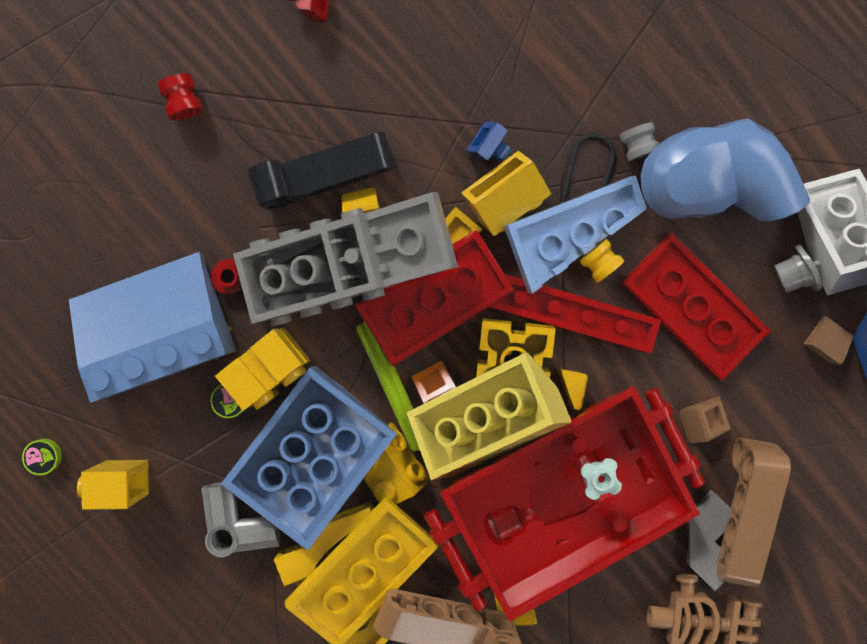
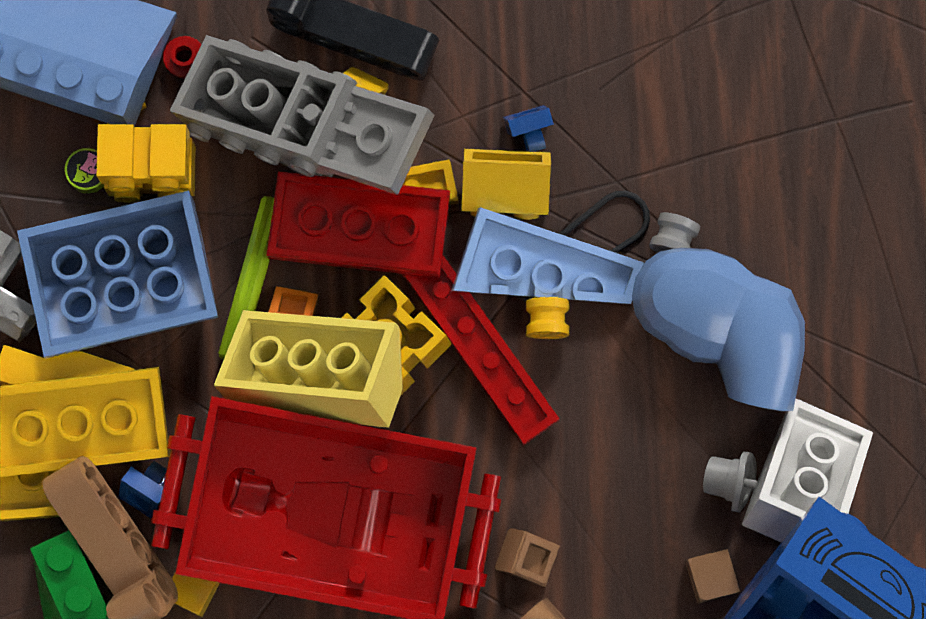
camera: 35 degrees right, 10 degrees down
(396, 472) = (187, 357): yellow bracket -> none
(437, 573) = (144, 490): none -> blue tile
(574, 386) = (424, 414): yellow slope -> none
(591, 473) = (360, 505): light aqua plate -> none
(695, 307) = (605, 438): red tile -> none

